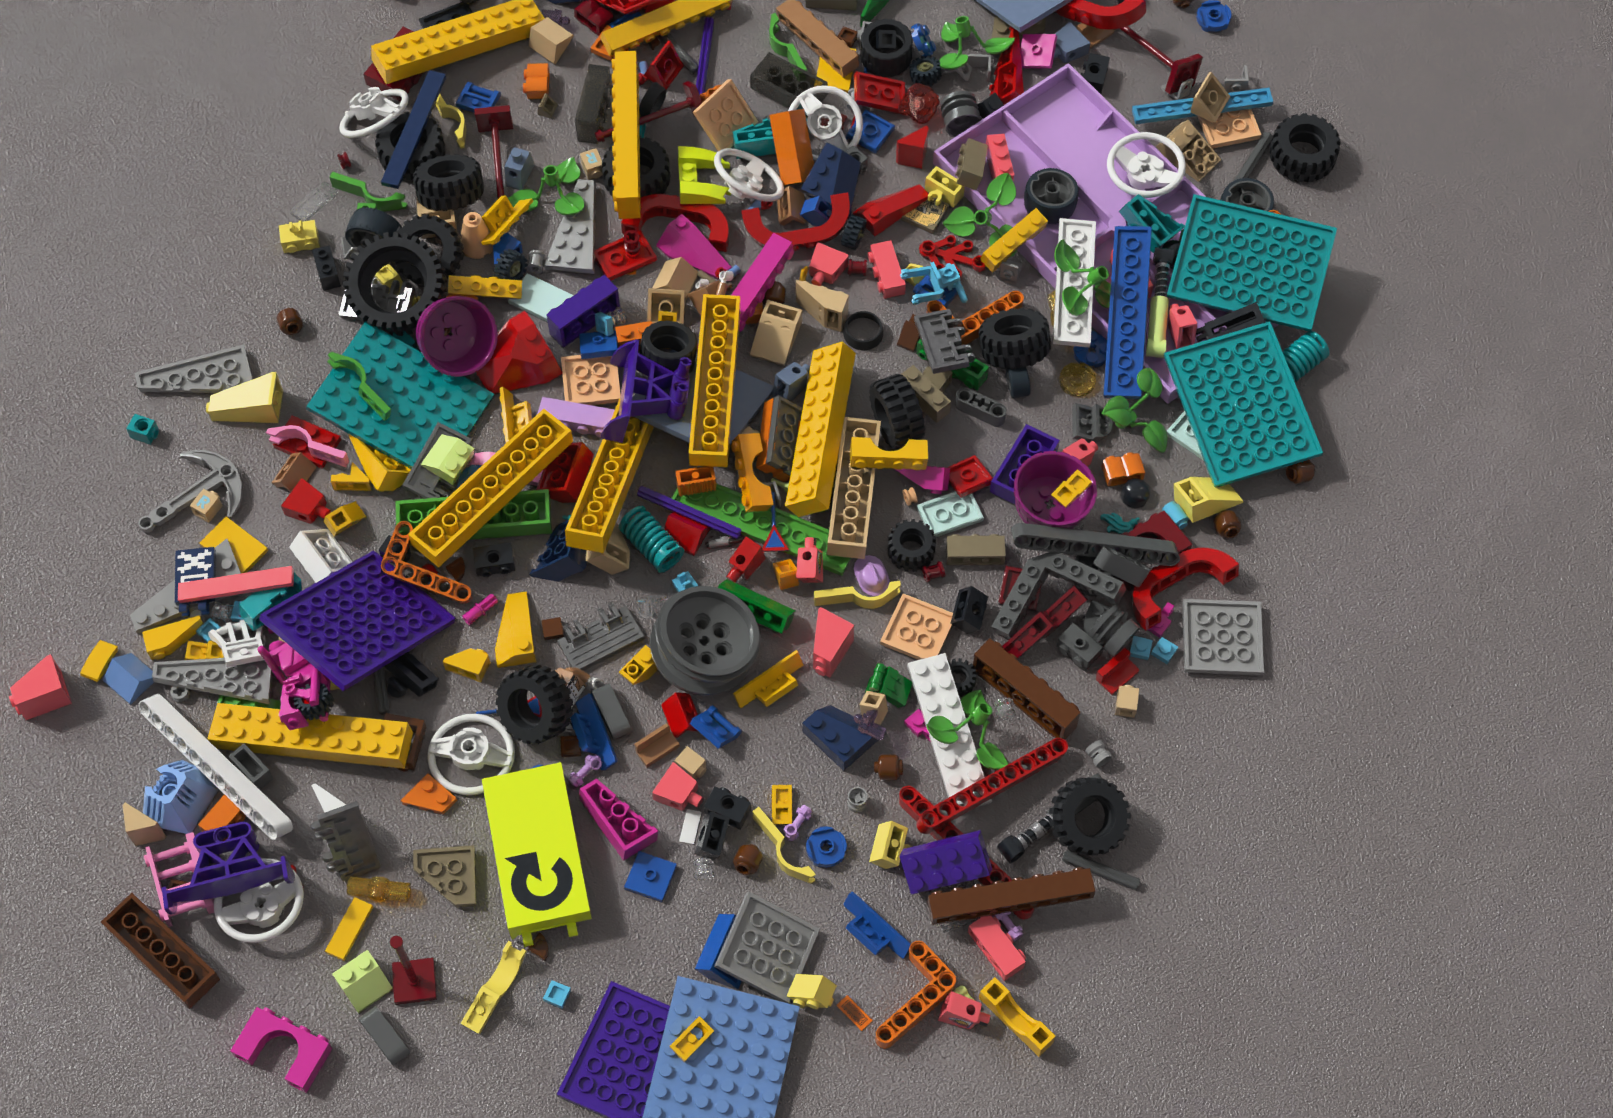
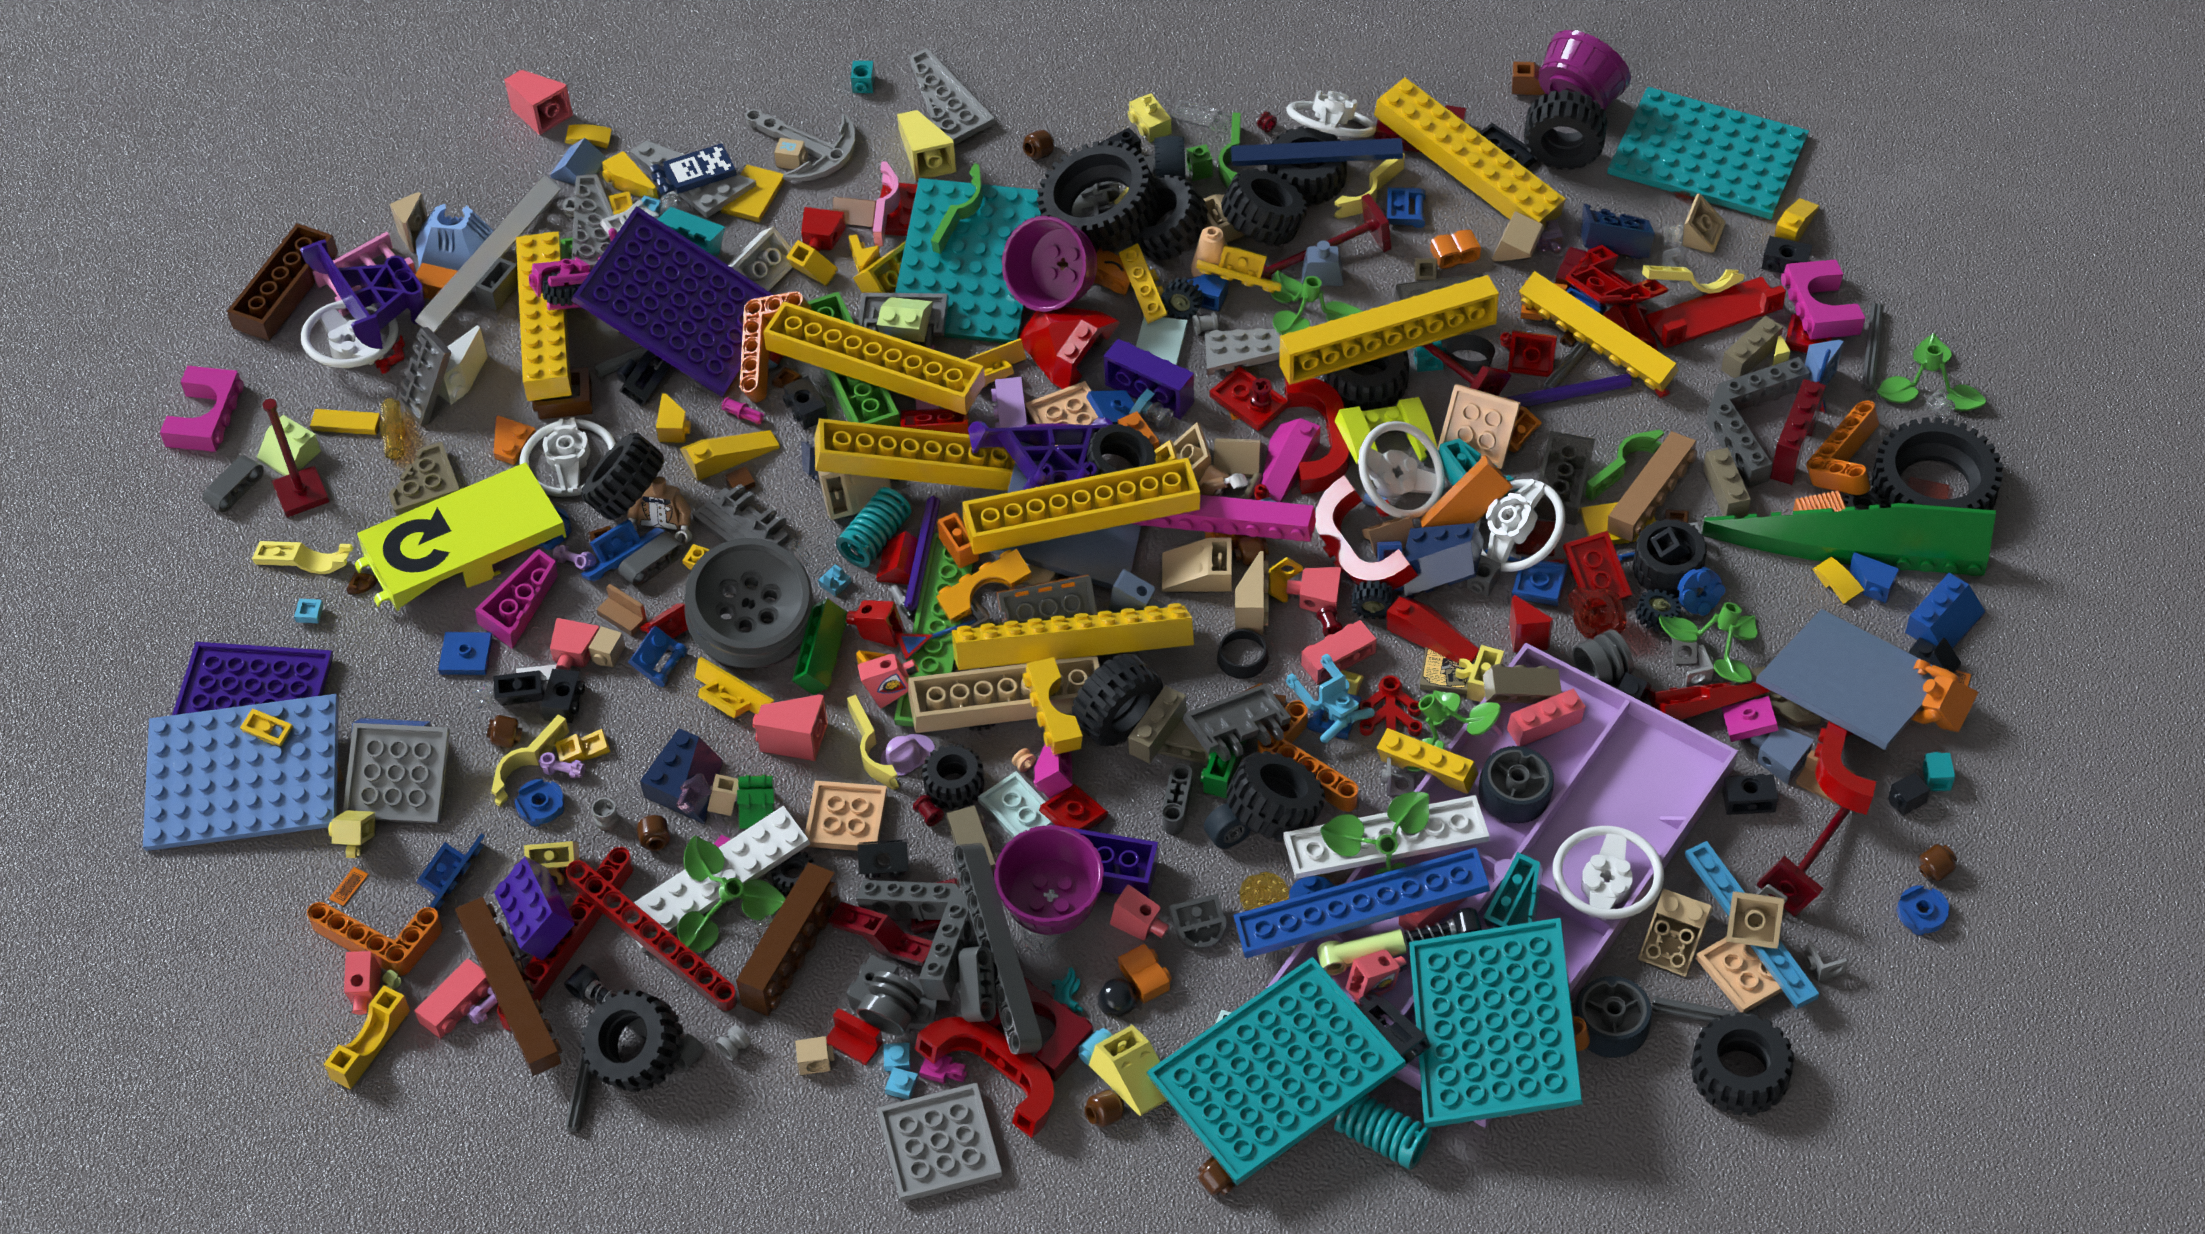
camera: 75 degrees right, 10 degrees down
(236, 584) = (690, 195): coral tile -> none
(1071, 489) = (1048, 888): yellow slope -> none
(1123, 416) = (1204, 993): bright green plant -> none

